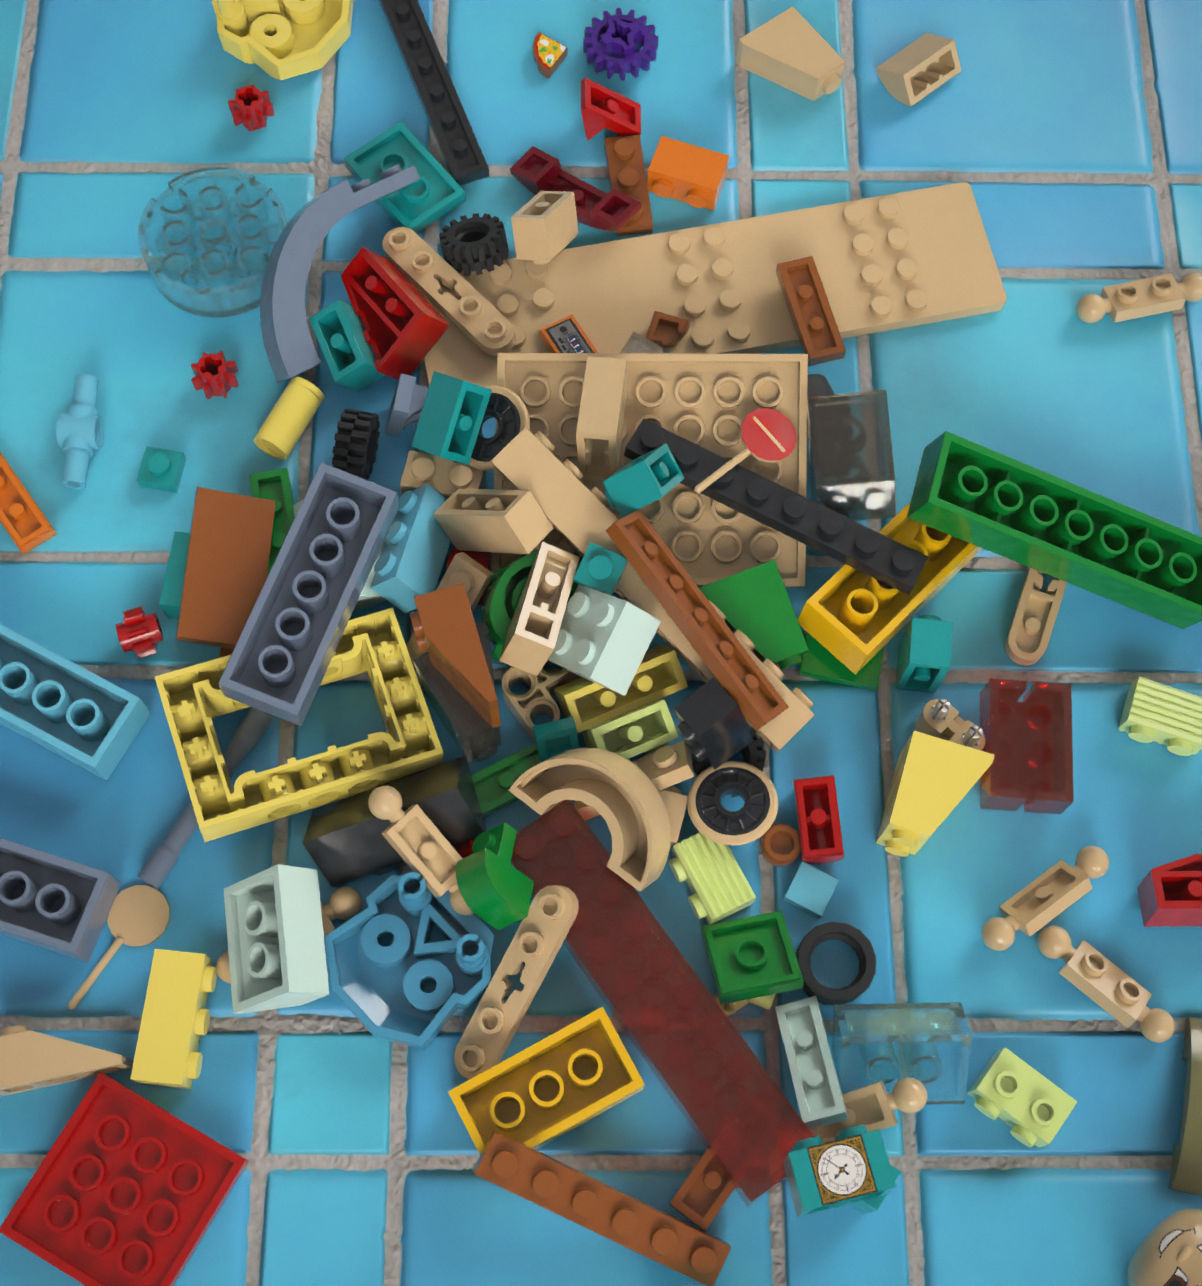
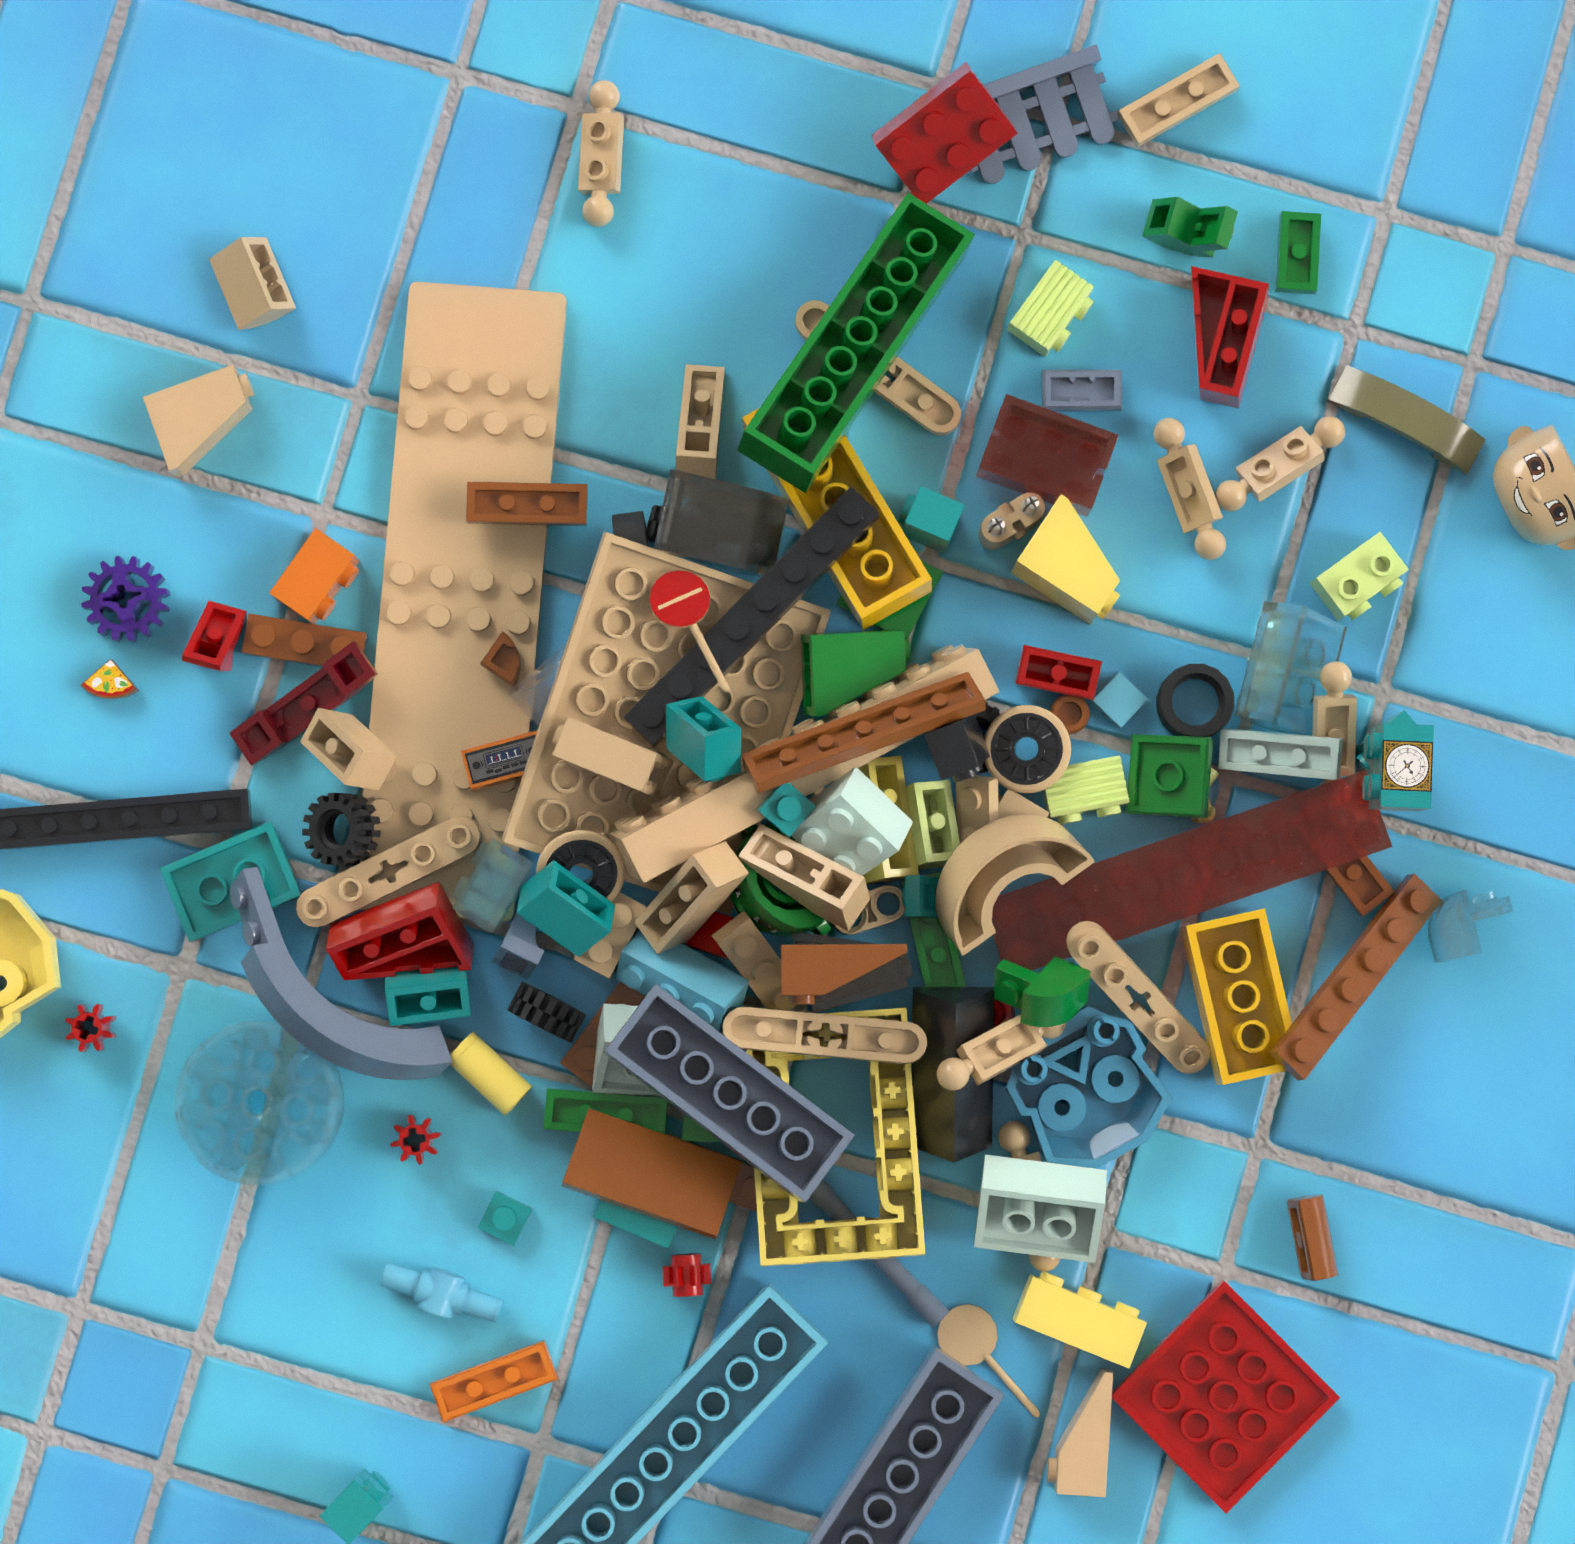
camera: 75 degrees left, 15 degrees up
(314, 1246) = (1312, 1237): none -> dark orange brick
(399, 715) = (866, 1037): none -> tan piece
(458, 360) = (493, 884): none -> clear light blue slope
(916, 429) = (700, 420): none -> tan slope
(1101, 768) = (1082, 390): none -> sand blue plate

